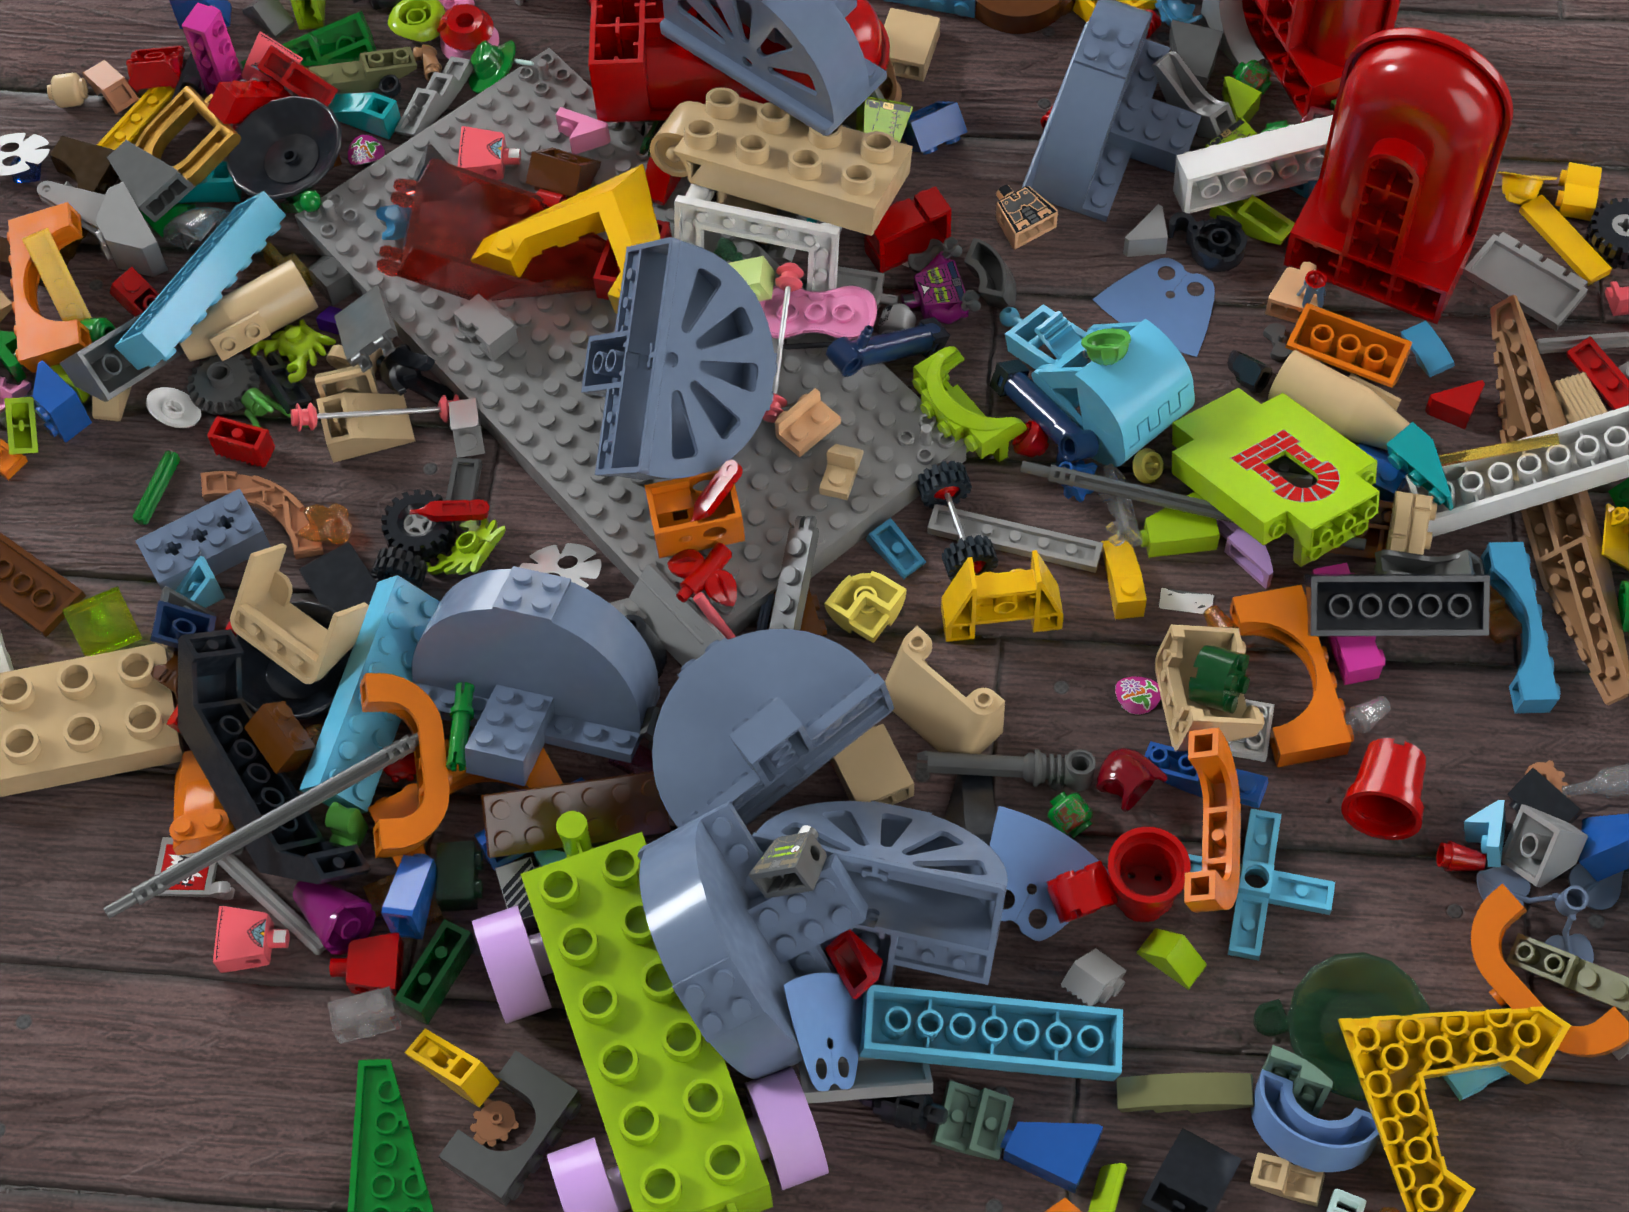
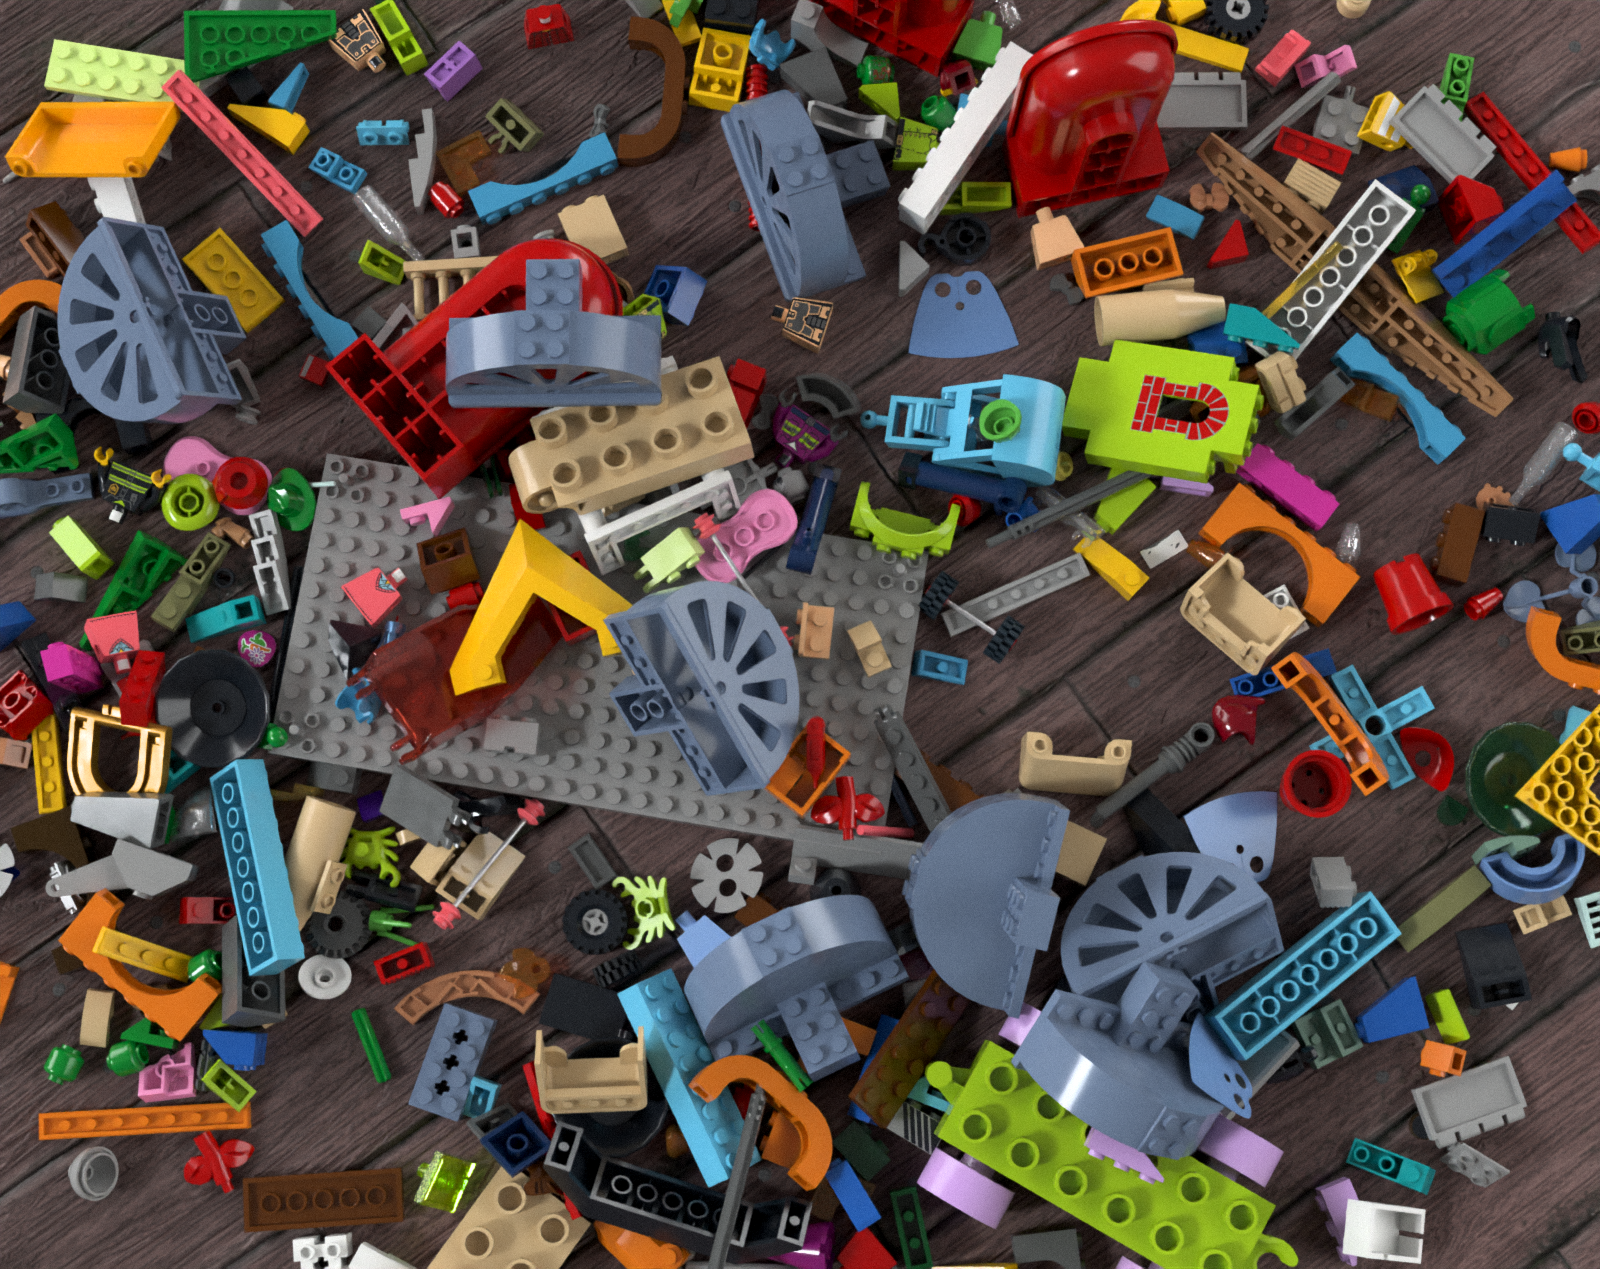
camera: 45 degrees left, 20 degrees up
(280, 737) = (661, 1163): reddish brown brick -> none
(296, 76) = (155, 636): red slope -> none
(346, 825) = (758, 1181): bright green leg -> none
(454, 510) = (616, 894): red piece -> none
(466, 427) = (559, 819): light grey slope -> none
(665, 1004) = (1124, 1155): none -> lavender slope
(790, 864) = (1128, 996): dark grey torso -> none
(854, 962) = (1204, 1013): red slope -> none
(866, 604) = (962, 730): light yellow brick -> none
(1001, 598) = (1042, 675): yellow wedge -> none
(1070, 814) = (1220, 774): green head -> none
(1081, 892) = (1278, 829): red brick -> none
(1137, 694) = (1189, 646): sticker -> none
(1173, 956) = (1359, 820): lime slope -> none
(1219, 678) = (1249, 604): dark green brick -> none
(1249, 371) = (1068, 331): black rock -> none
(1293, 930) = (1440, 770): none -> red piece
(1314, 284) = (1072, 233): piece -> none
(1398, 604) = (1319, 452): black arch -> none
(1464, 352) = (1217, 199): none -> nougat piece
(1474, 787) = (1456, 544): none -> reddish brown brick
(1489, 830) = (1489, 566): medium azure slope -> none
(1541, 846) = (1533, 559): light grey slope -> none

